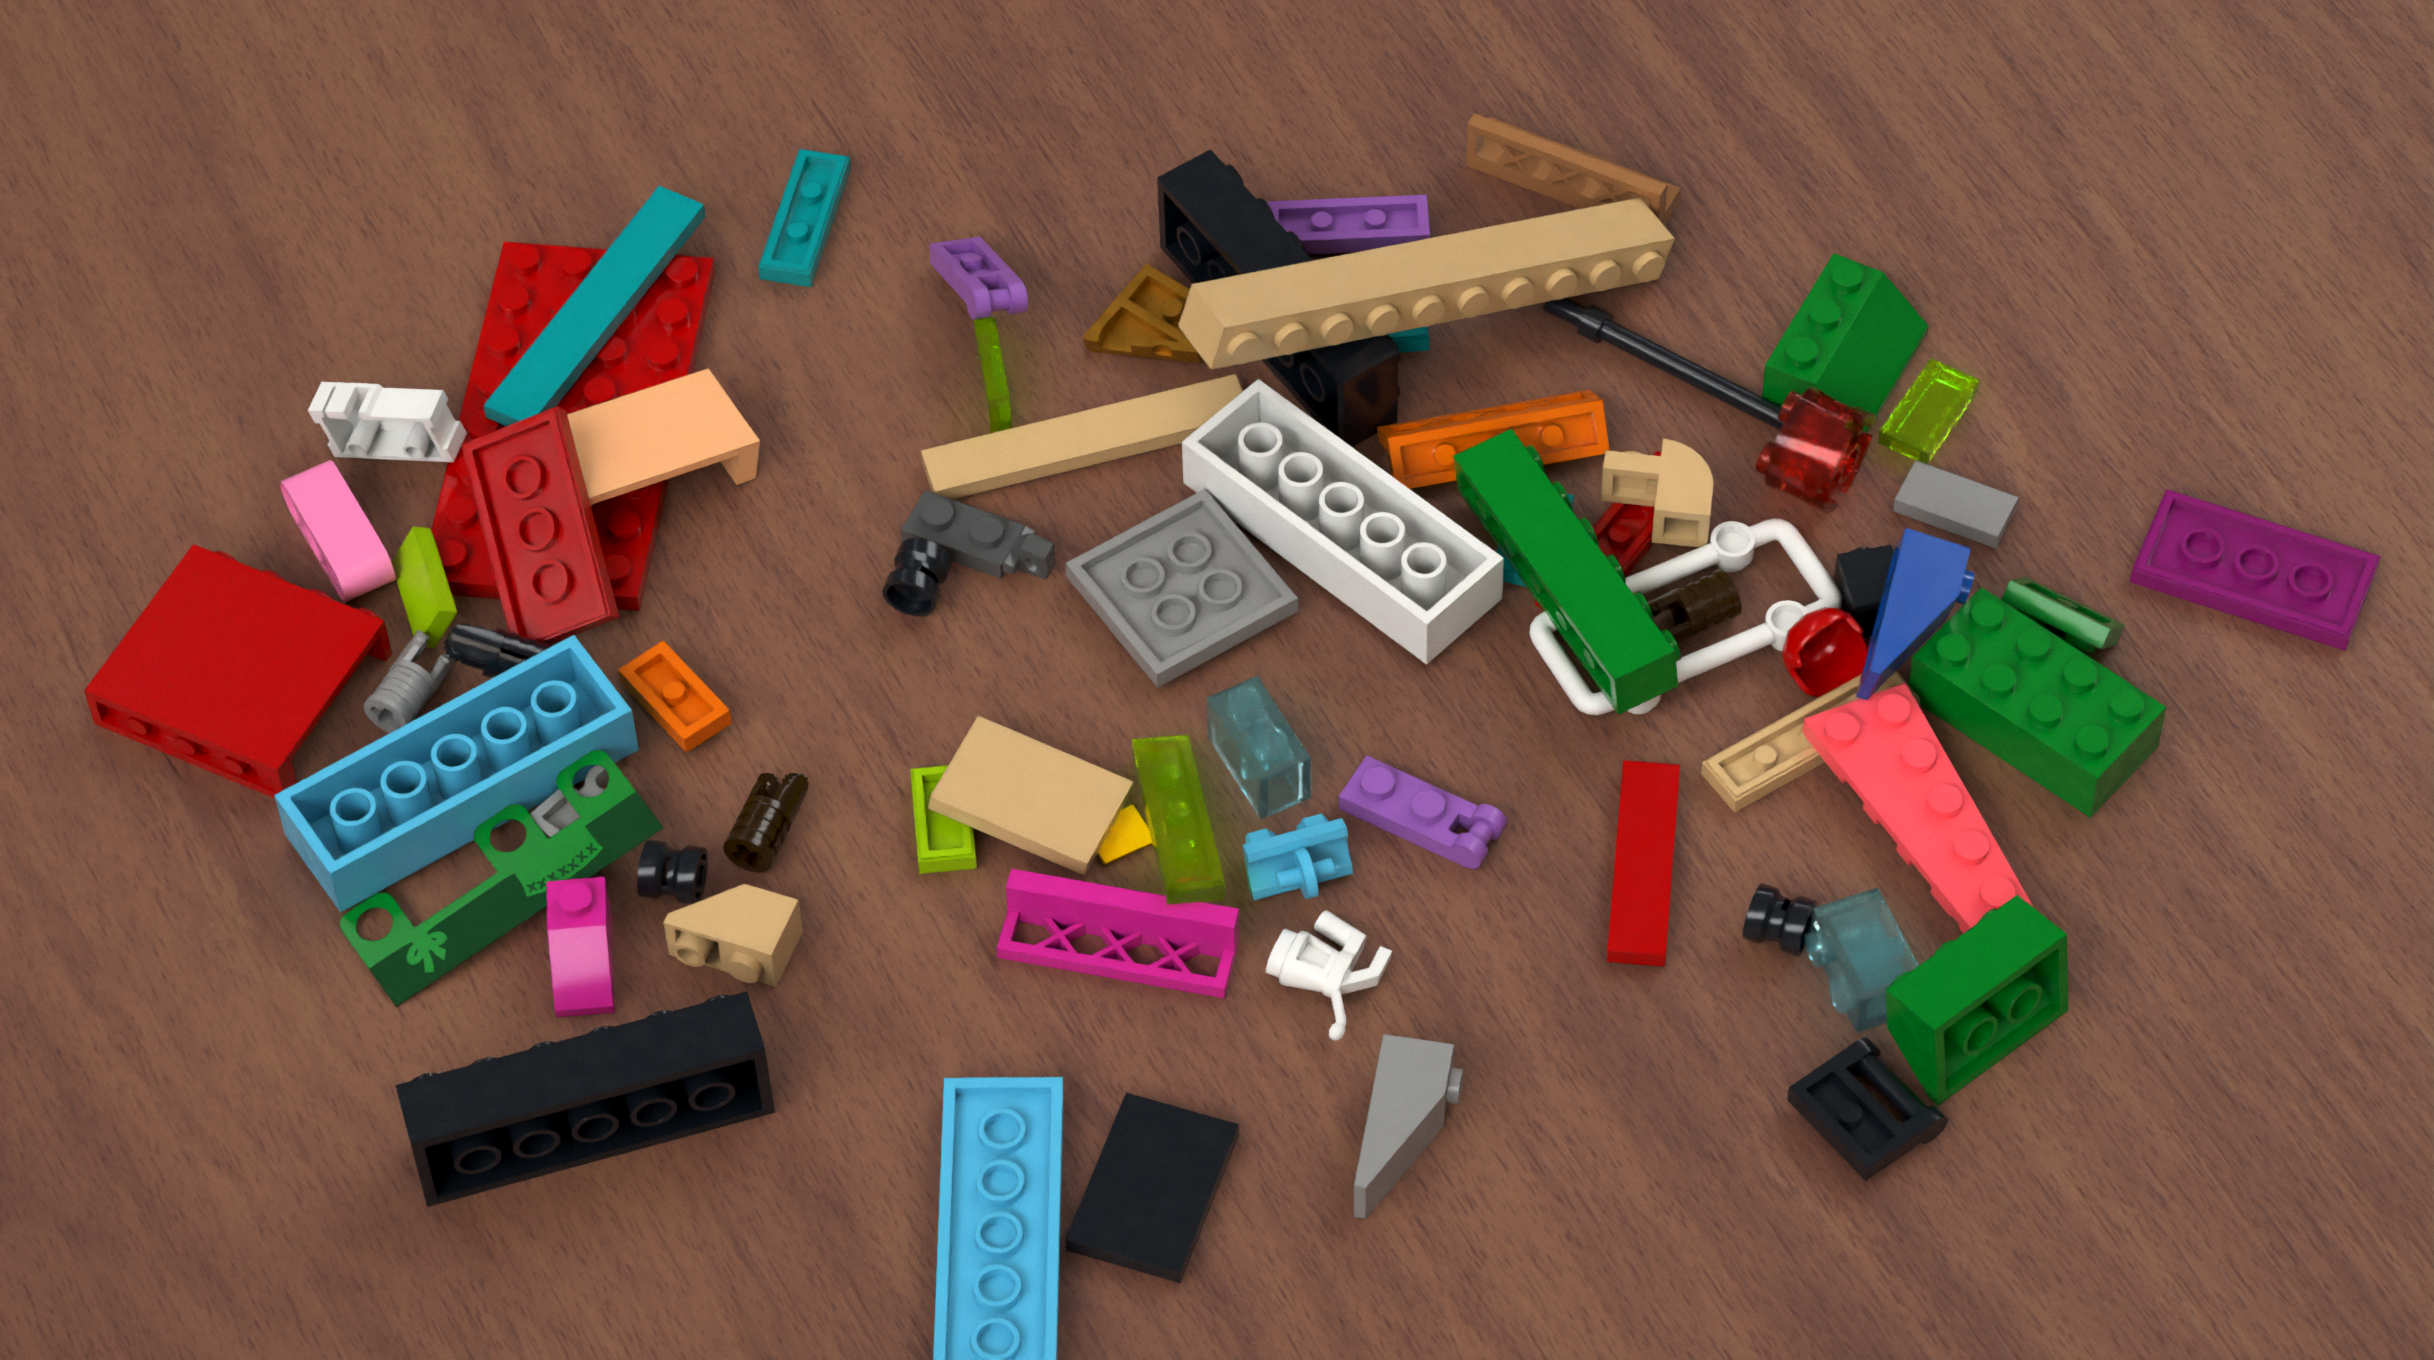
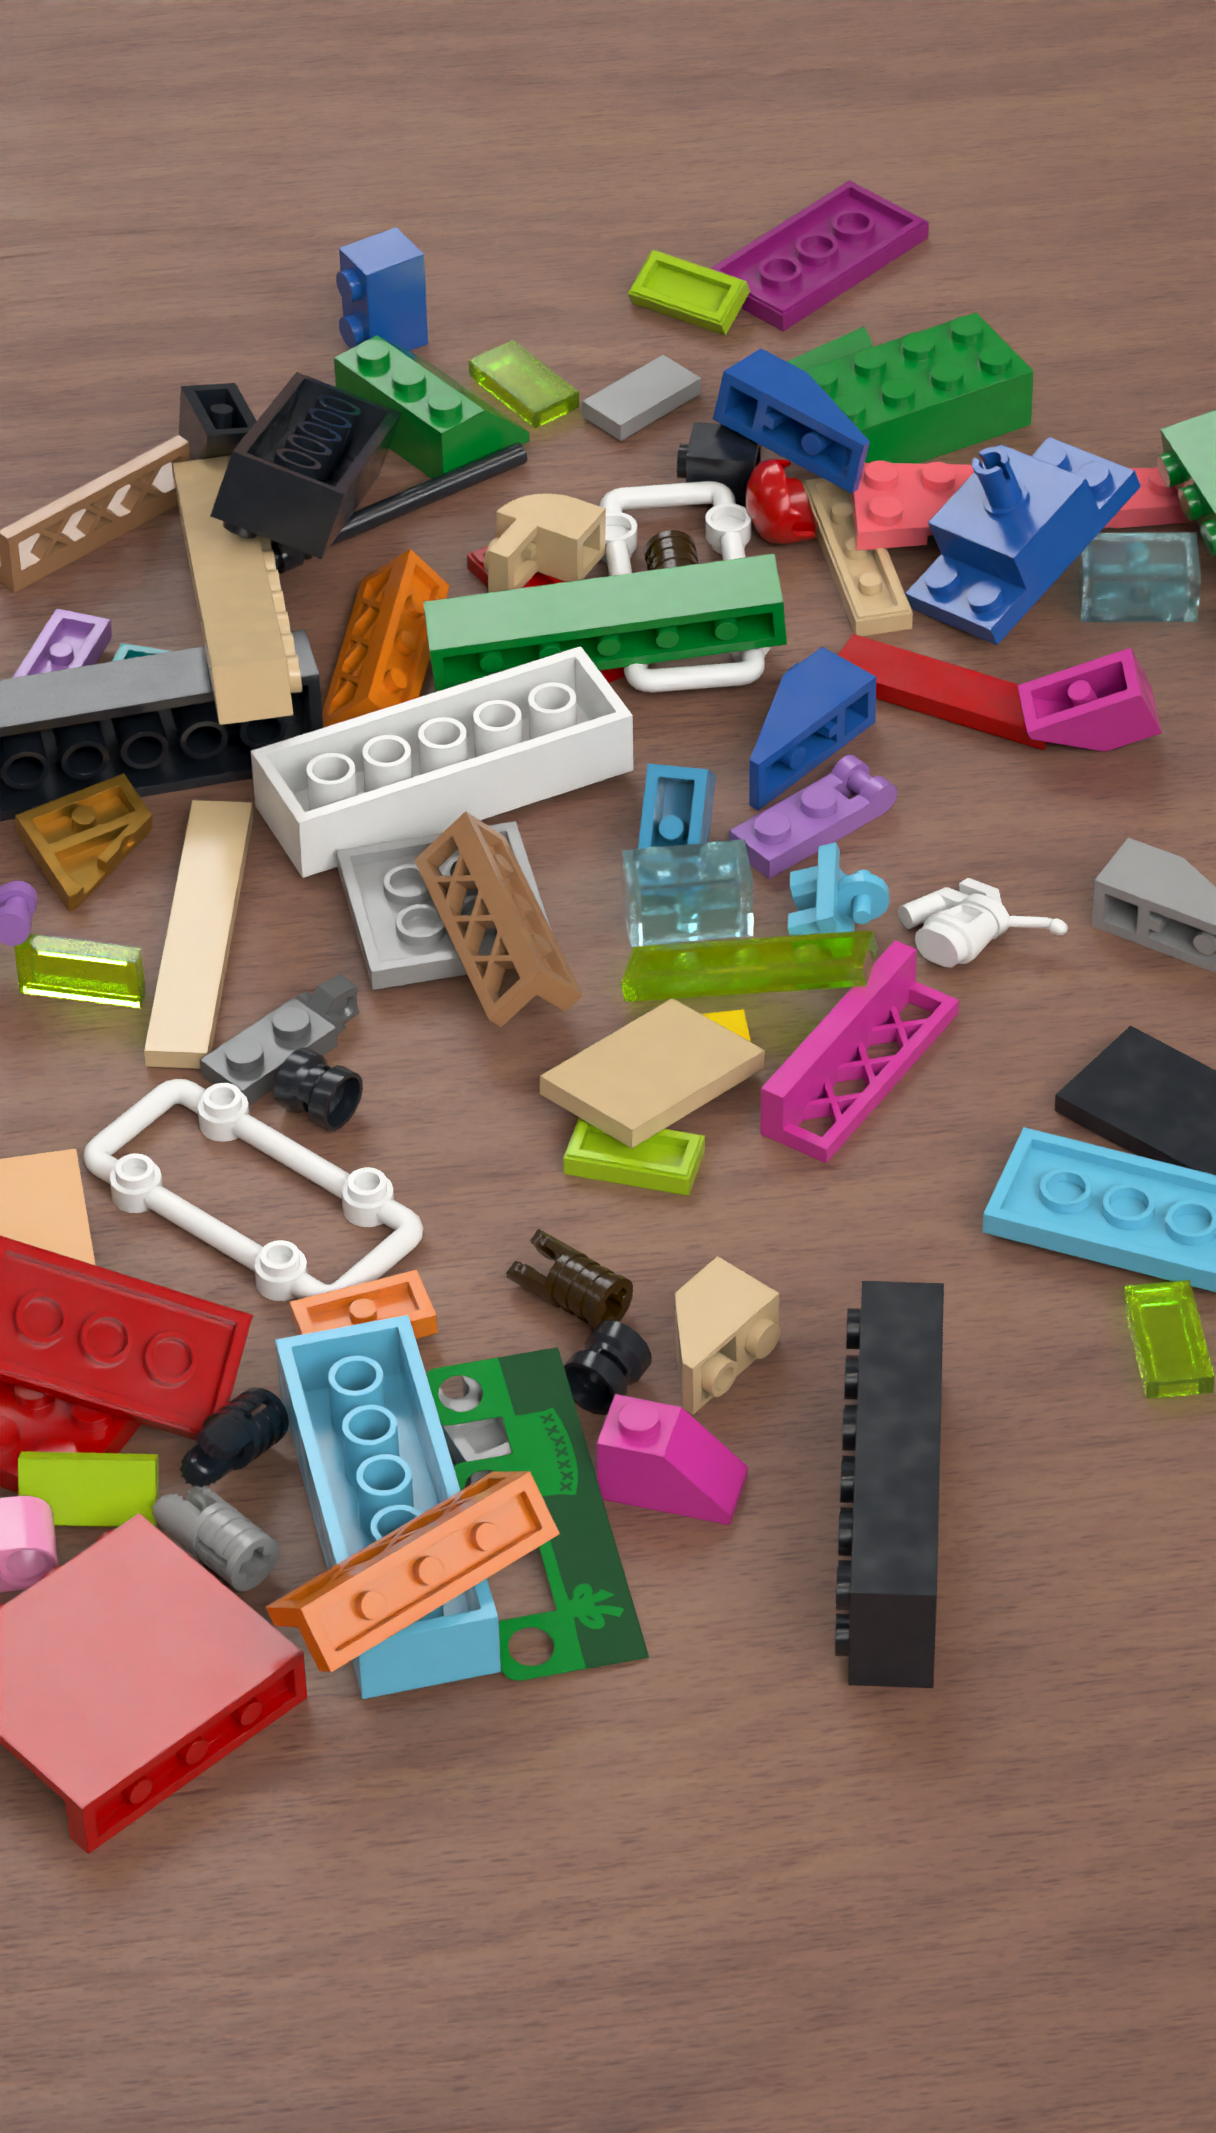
camera: 70 degrees left, 10 degrees down
(342, 798) = (417, 1568): none -> orange fence
(818, 651) = (224, 1117): none -> white bar
(866, 1260) = (1168, 1339): none -> clear neon green tile
(1145, 624) = (501, 904): none -> medium nougat fence
(1352, 709) = (676, 806): none -> dark azure slope
(1533, 764) = (811, 717): none -> blue slope
(1622, 277) = (305, 466): none -> black brick
(1645, 971) = (1092, 704): none -> dark pink slope
(1703, 209) = (213, 419): none -> black slope
(1779, 919) = (1070, 614): black wheel -> none
(1816, 448) = (554, 435): clear red brick -> none
(1851, 835) = (1016, 533): none -> blue brick
(1954, 258) = (383, 291): none -> blue brick
(2127, 487) = (689, 292): none -> lime tile

